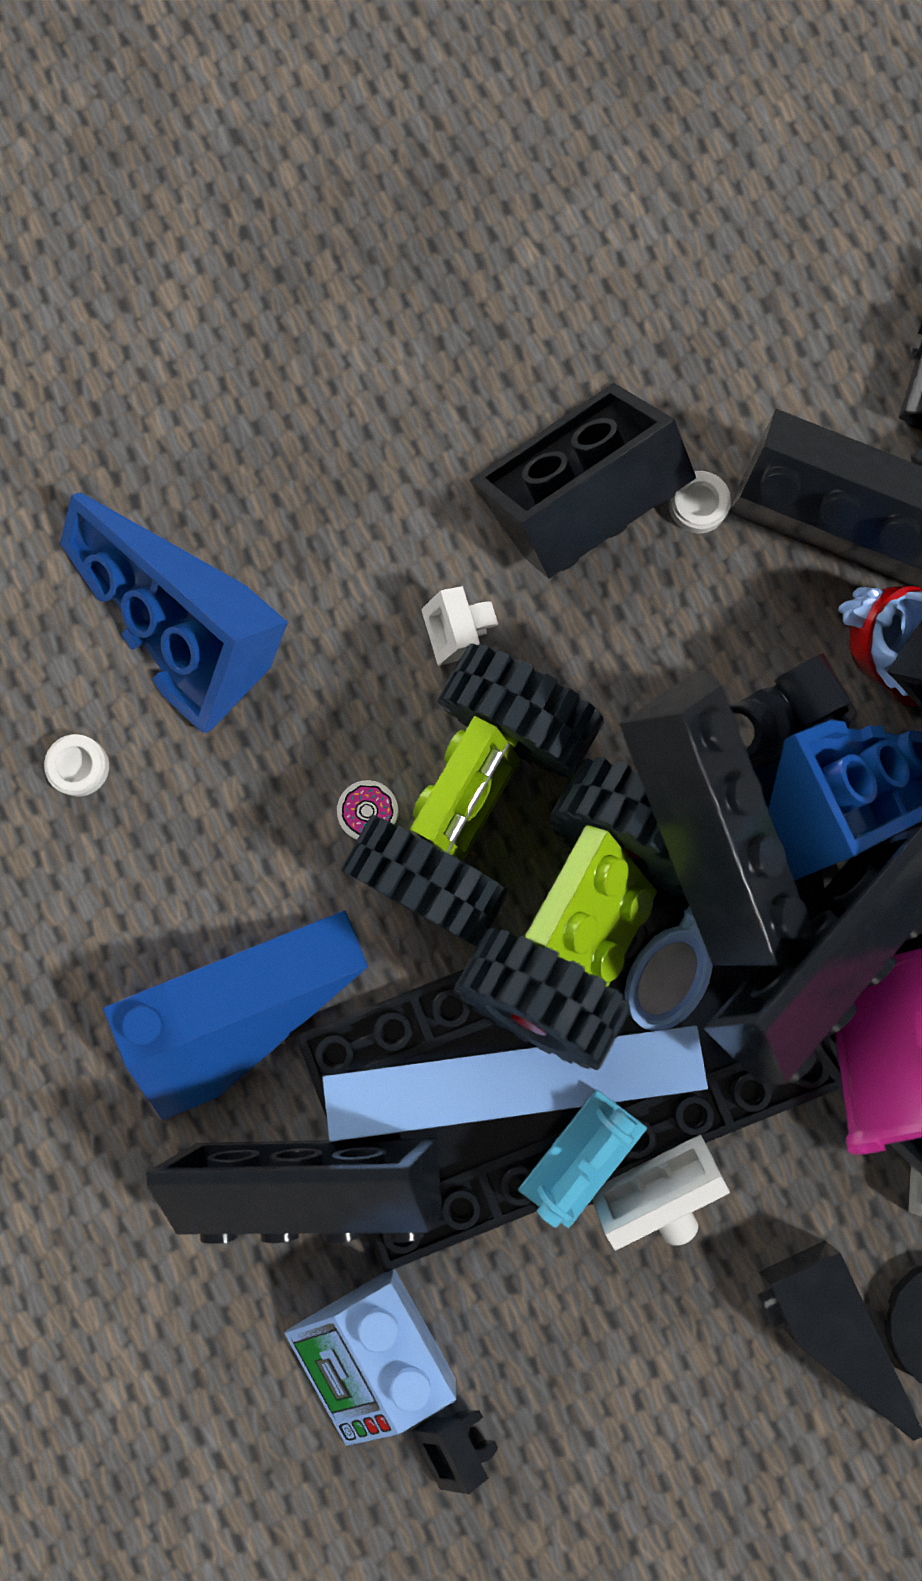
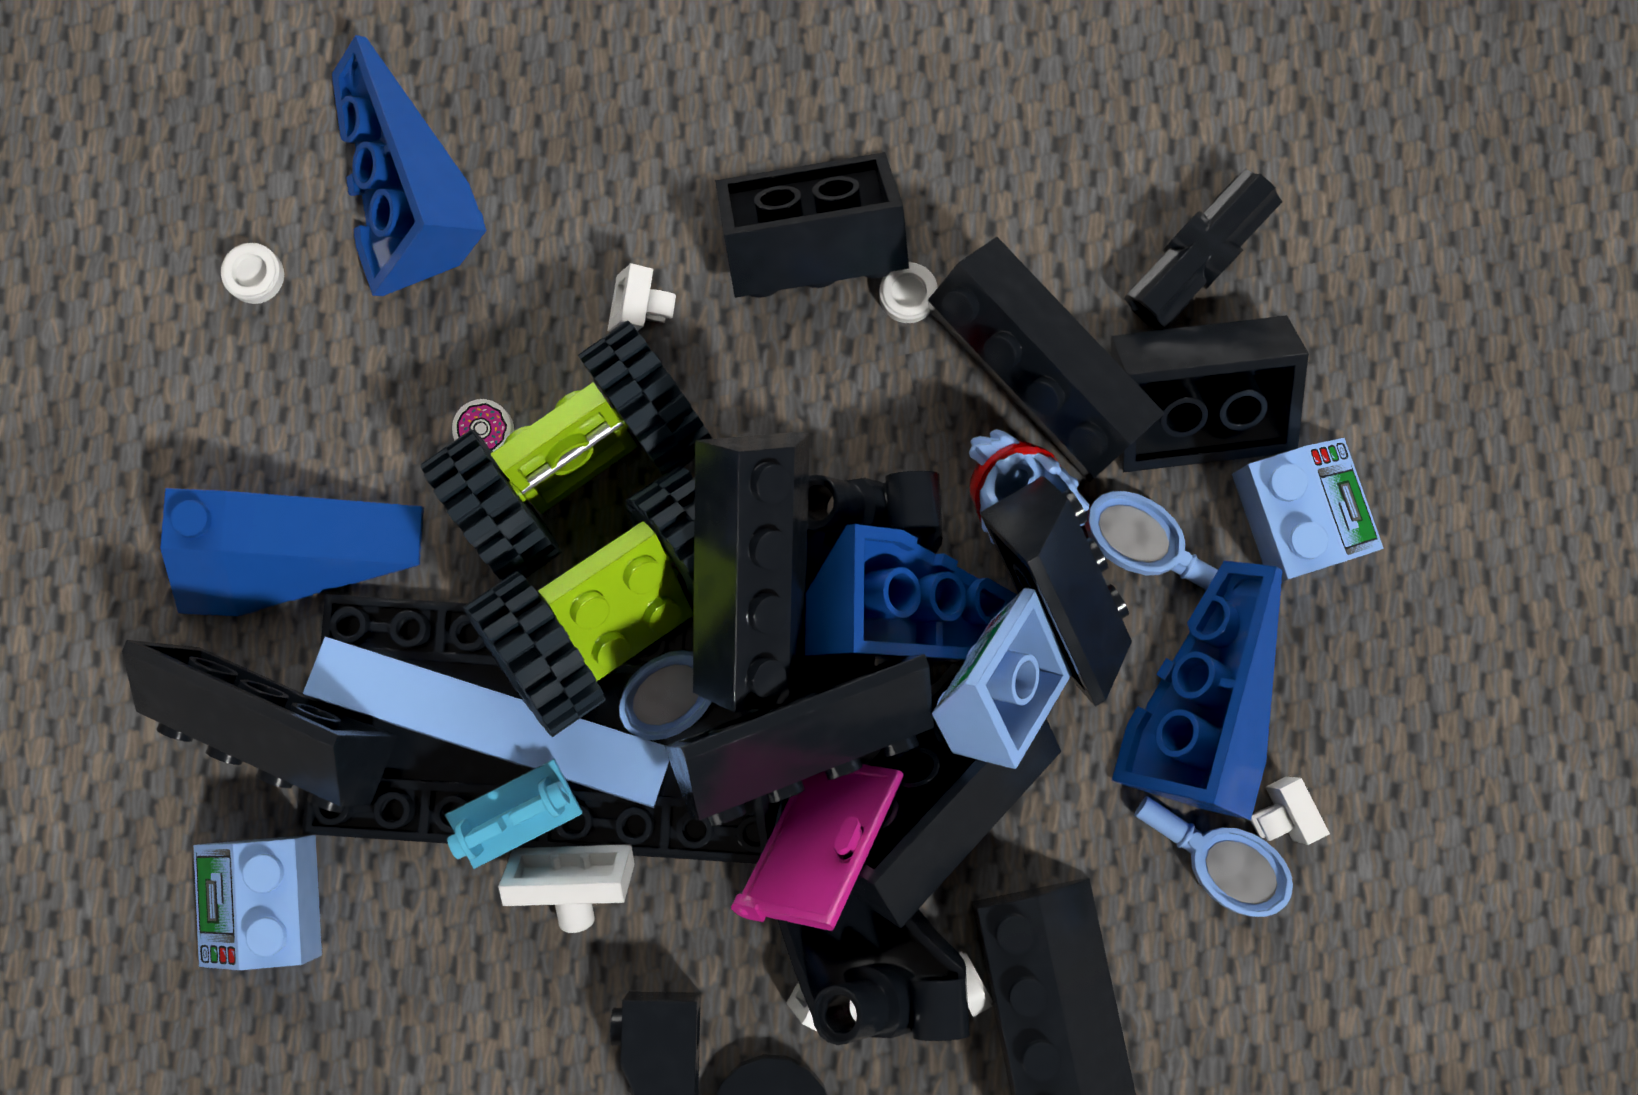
camera: 30 degrees right, 0 degrees up
(450, 1452) = (282, 1013): black tile -> none

